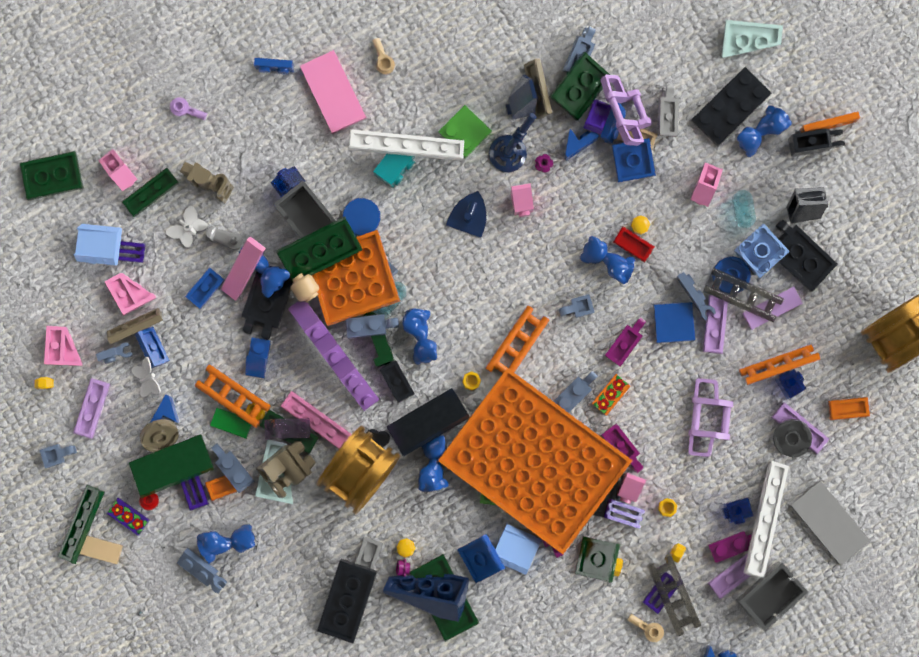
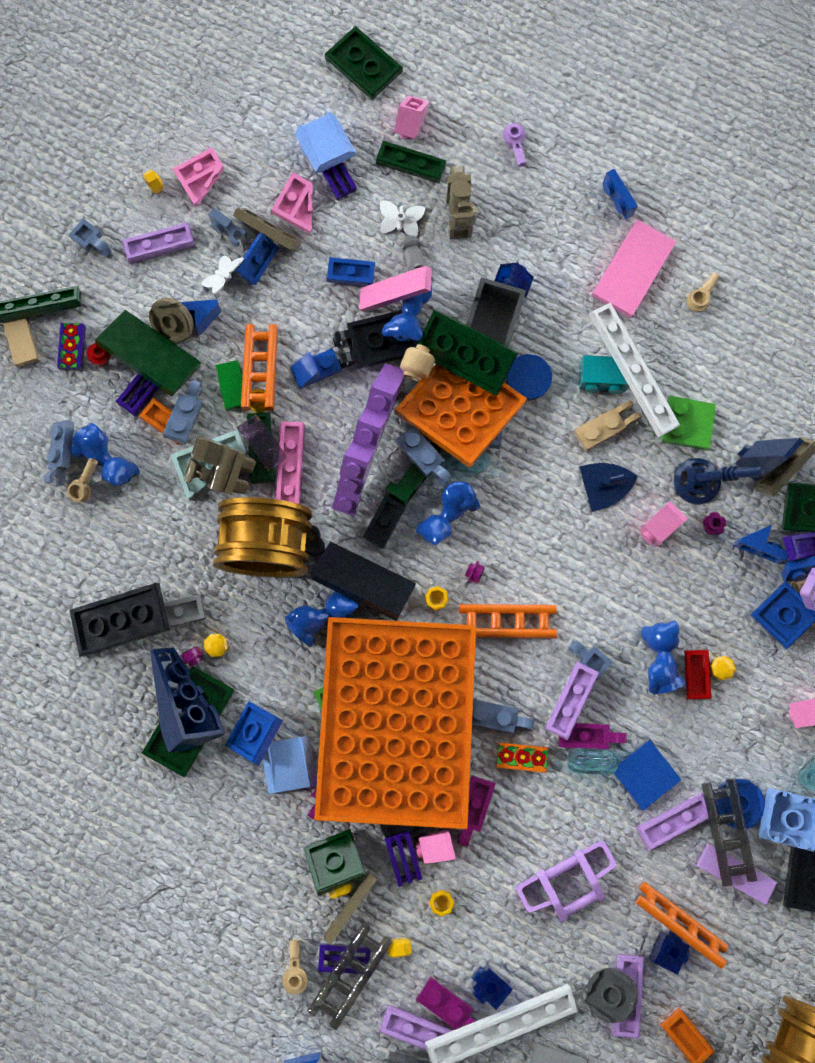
camera: 50 degrees right, 5 degrees down
(237, 572) = (79, 489): none -> tan plate
(430, 189) = (605, 426): none -> tan hinge
(471, 344) = (474, 572): none -> magenta plate
(596, 338) = (571, 700): none -> lavender tile
(632, 568) = (349, 907): none -> dark tan tile
(643, 351) = (592, 761): none -> clear light blue plate
(696, 296) = (690, 780): sand blue plate -> none

